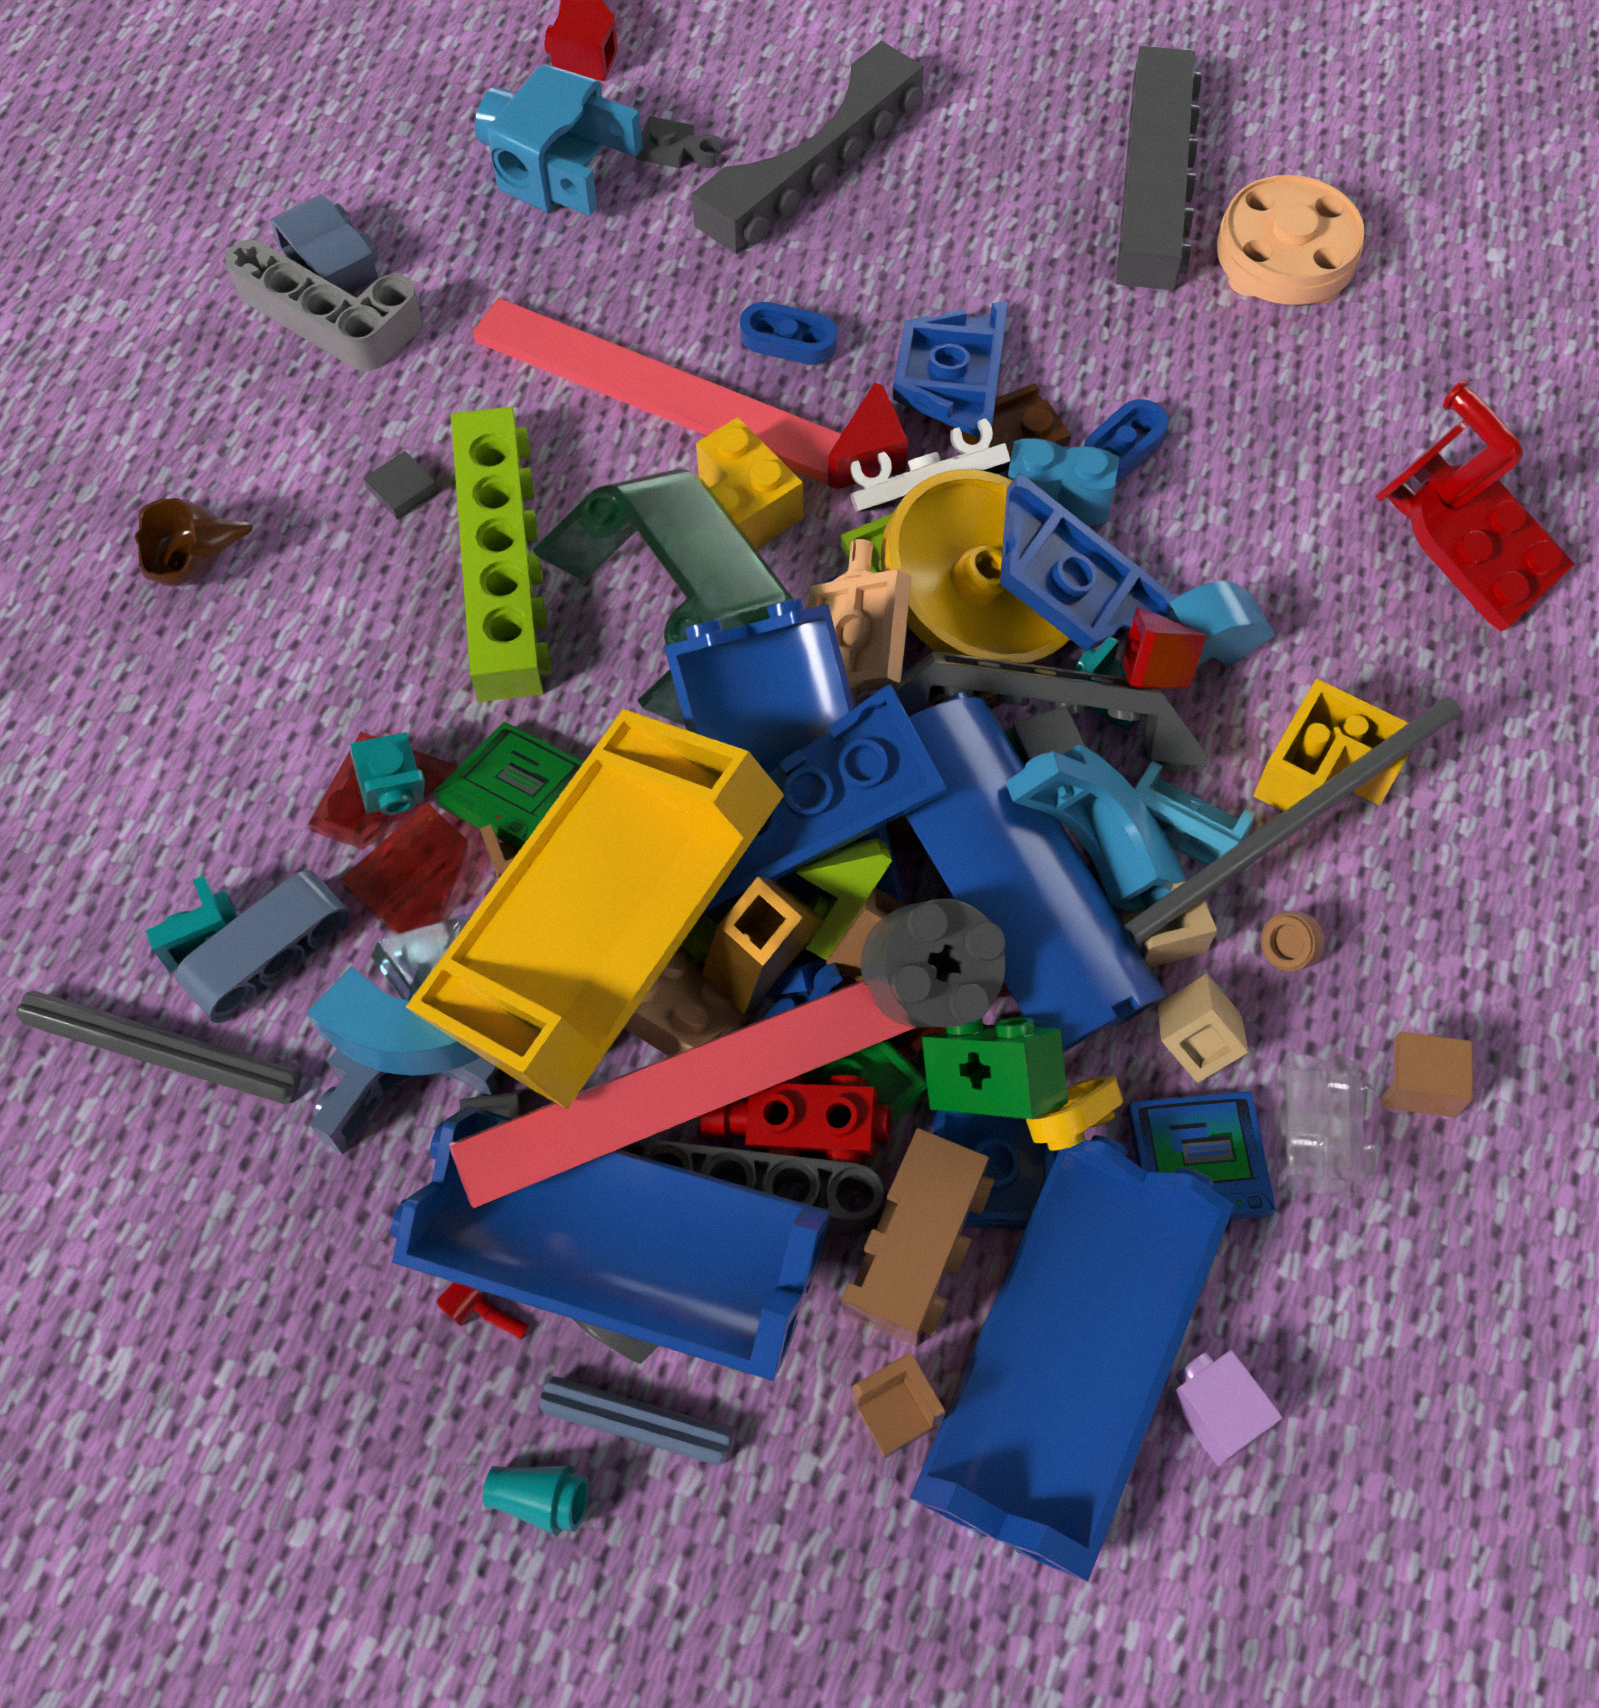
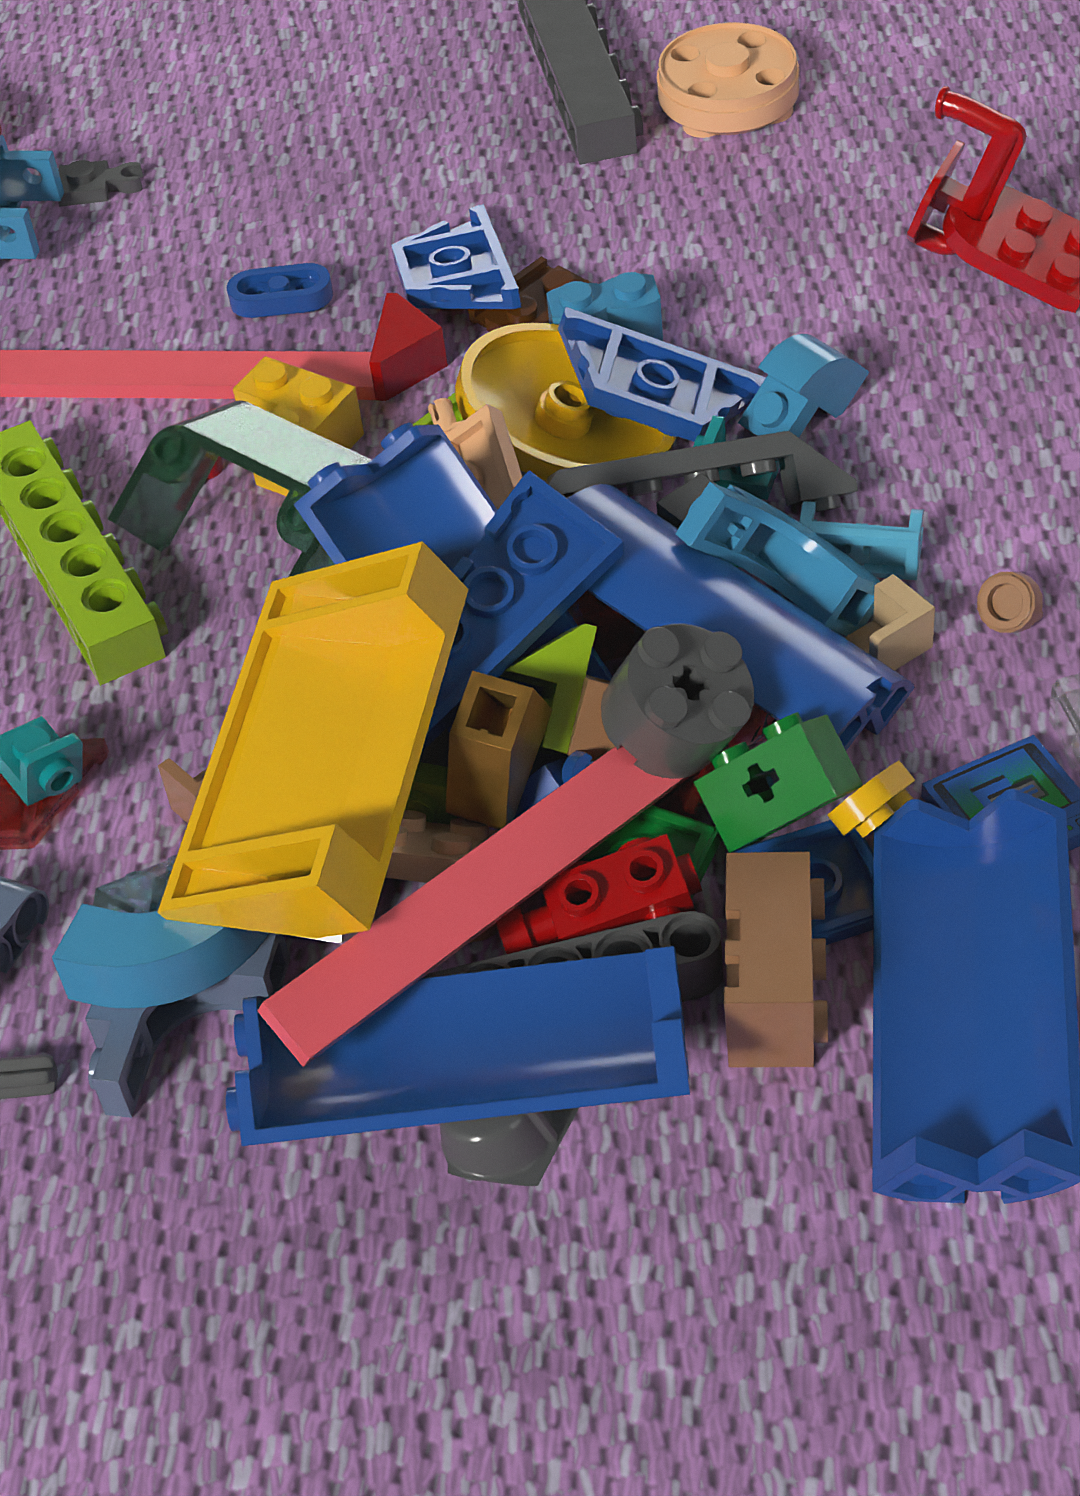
camera: 15 degrees left, 15 degrees down
(410, 872) = (93, 840): clear red wing -> none
(462, 1301) = (326, 1189): red hand -> none
(507, 784) = (161, 726): green tile -> none
(541, 1496) = (486, 1332): teal cone -> none
(636, 1420) = (557, 1232): sand blue axle -> none
(749, 198) = (190, 199): dark grey arch -> none
(897, 1405) = (821, 1108): medium nougat panel -> none
(973, 457) = (437, 378): white plate -> none
(1120, 438) = (659, 256): blue plate -> none
(1160, 652) = (768, 405): red slope -> none
(1202, 1028) = (961, 699): tan panel -> none
(1291, 820) = (957, 495): dark grey piece -> none
(1323, 740) = (973, 431): yellow brick -> none

